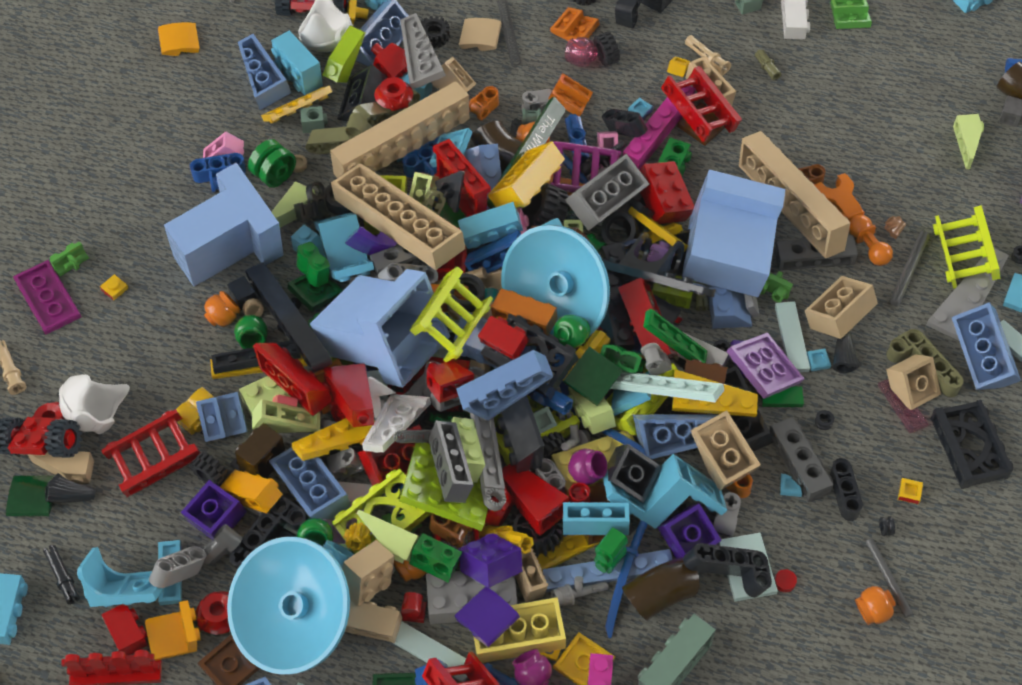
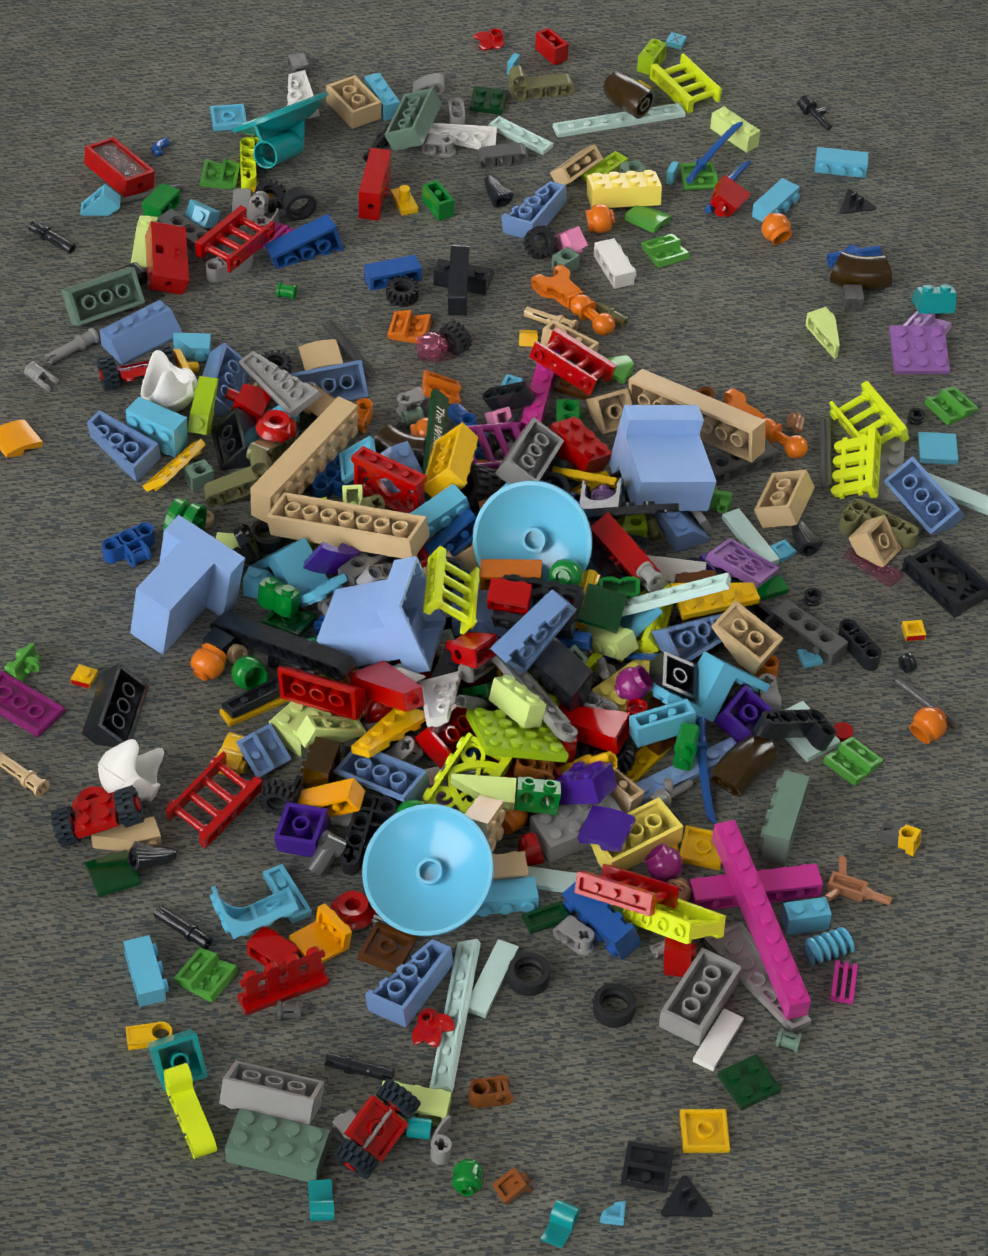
camera: 25 degrees left, 10 degrees down
(56, 631) = (206, 974): none -> bright green slope
(120, 329) = (115, 707): none -> black slope
(177, 567) = (300, 879): light grey beam -> none
(224, 145) = (123, 520): bright pink slope -> none
(285, 400) = (325, 712): coral tile -> none
(357, 536) = (457, 800): yellow gear -> none
(367, 650) = (511, 896): none -> medium azure brick
(450, 462) = (514, 710): dark grey brick -> none
(451, 187) = (389, 488): black piece -> none
(482, 63) = (340, 380): none -> medium blue slope
(673, 337) = (656, 556): green tile -> none
(719, 158) = (608, 408): none -> tan slope
(732, 27) = (570, 296): none -> orange piece
(751, 120) = (624, 368): none -> bright green slope
(781, 617) = (853, 761): none -> bright green slope
(945, 292) = (869, 472): none -> neon yellow fence
(967, 19) = (776, 228): none -> orange piece

